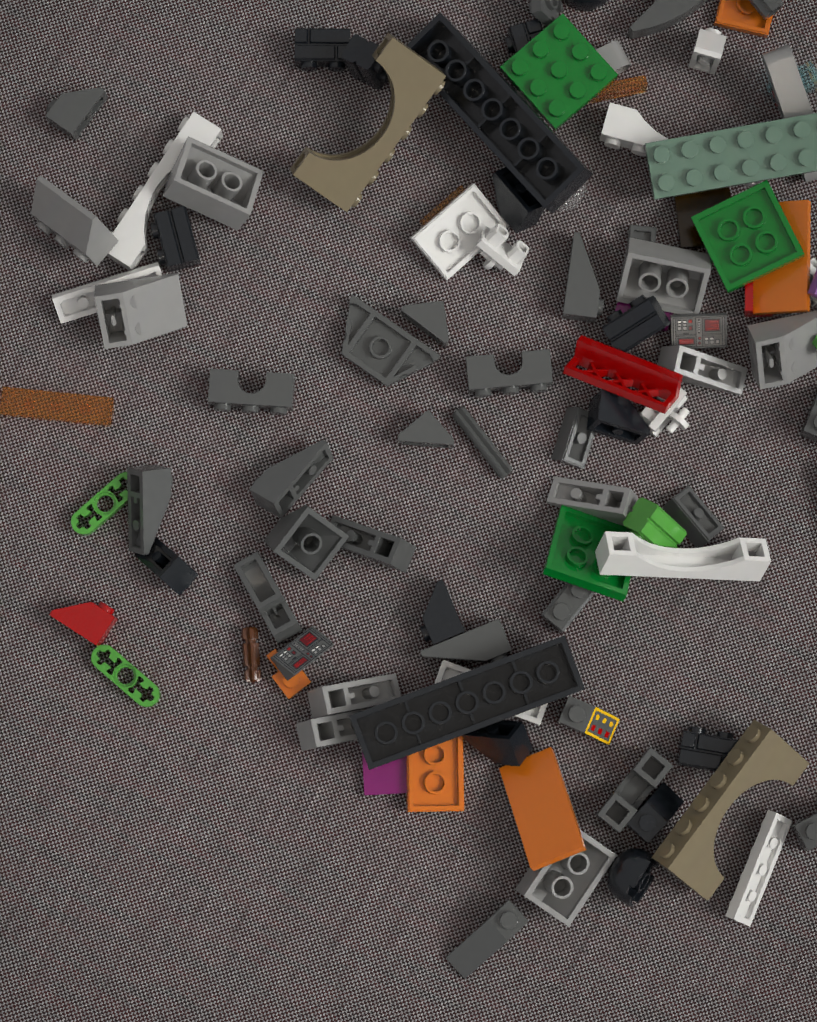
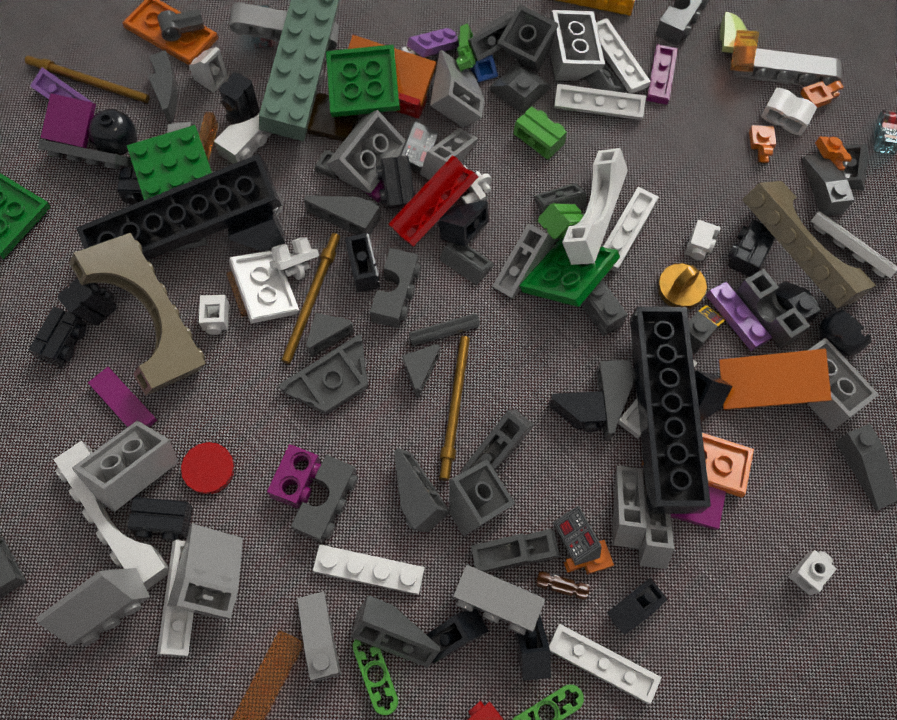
camera: 75 degrees left, 15 degrees down
(119, 437) = (318, 637): none -> light grey slope
(180, 642) = (534, 653): none -> black slope
(189, 716) = (604, 664): none -> white plate
(199, 460) = (368, 569): none -> white plate
(208, 593) = (498, 600): none -> light grey slope
(243, 261) = (207, 468): none -> red tile
(255, 733) = (637, 606): none -> black slope
(264, 343) = (288, 475): none -> magenta brick
(282, 143) = (121, 399): none -> magenta tile
(341, 898) = (806, 576): none -> white brick
(345, 495) = (448, 452): none -> pearl gold bar
(410, 185) = (211, 307): none -> white brick
(522, 284) = (327, 257): none -> pearl gold bar
(522, 326) = (362, 262): none -> black brick
(617, 757) = (738, 316): none -> medium lavender plate
(632, 685) = (682, 286): none -> pearl gold tile
(673, 106) = (239, 99): none -> black brick
(682, 603) = (630, 224): none -> white plate
(695, 691) = (702, 240): none -> white brick
(772, 464) = (540, 132): none -> bright green brick

